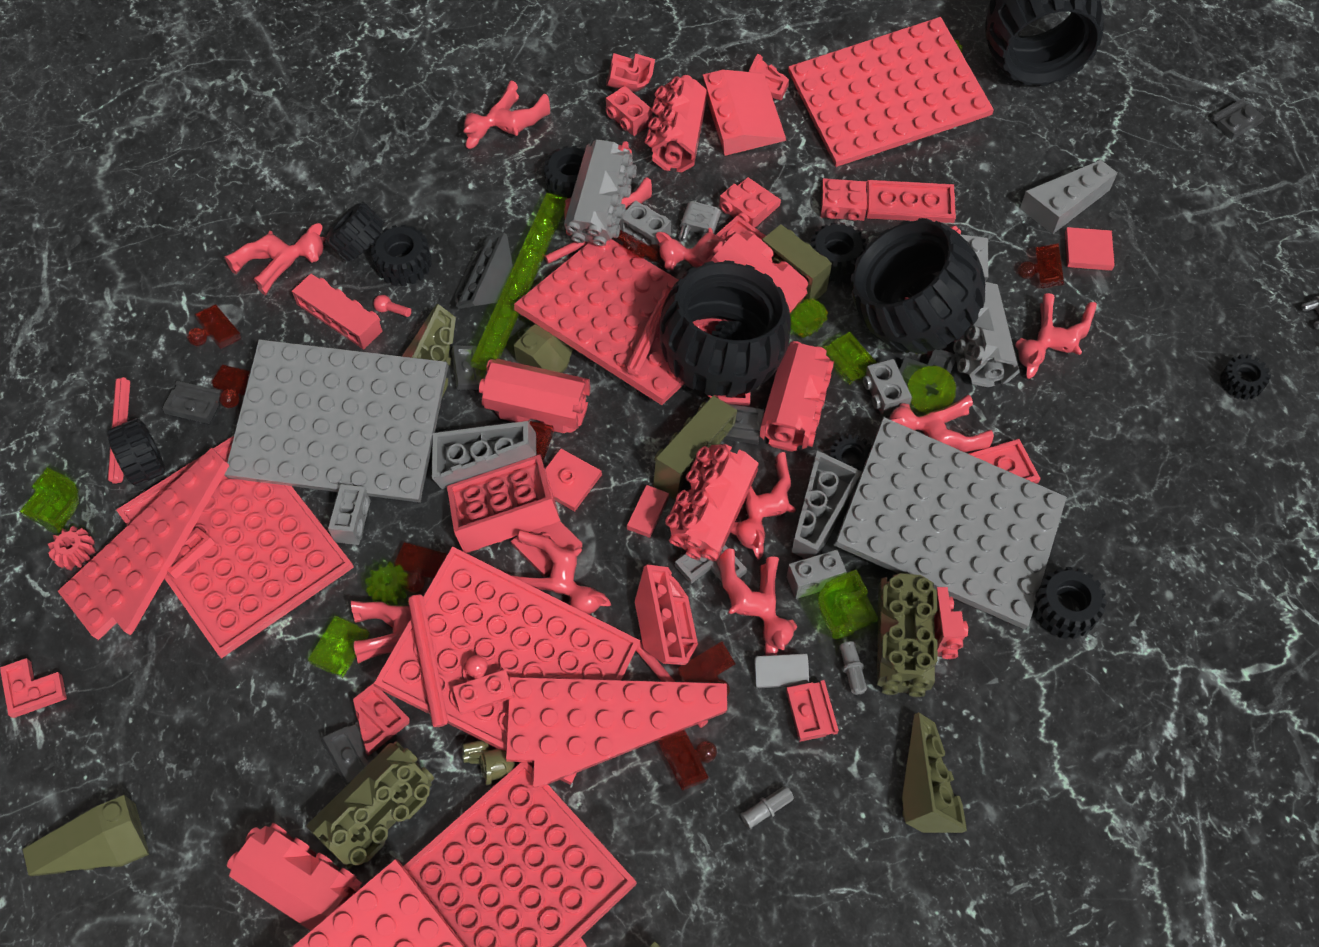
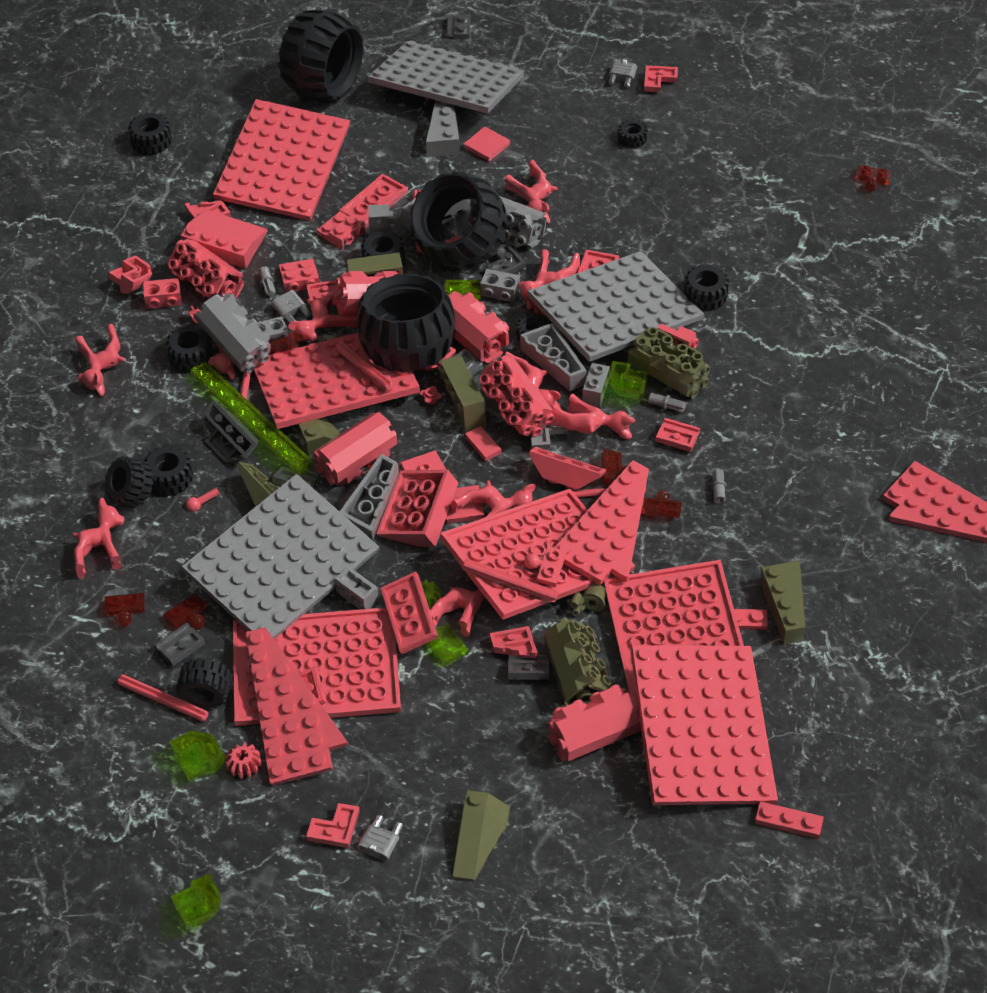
camera: 55 degrees left, 10 degrees down
(32, 742) = (379, 841): none -> light grey piece
(337, 310) = (179, 528): coral brick -> none
(342, 584) = (409, 612): none -> coral tile
(420, 563) = (426, 569): clear red plate -> none
(676, 424) = (430, 395): none -> coral plate
(717, 181) = (267, 281): none -> light grey axle
(781, 670) = (641, 436): light grey slope -> none
(872, 218) = (380, 218): none -> light grey brick
(927, 790) = (766, 411): olive wedge -> none
(932, 375) = (526, 256): clear neon green plate -> none
(1048, 267) = (483, 167): clear red plate -> none
(1143, 153) = (446, 76): none -> light grey plate

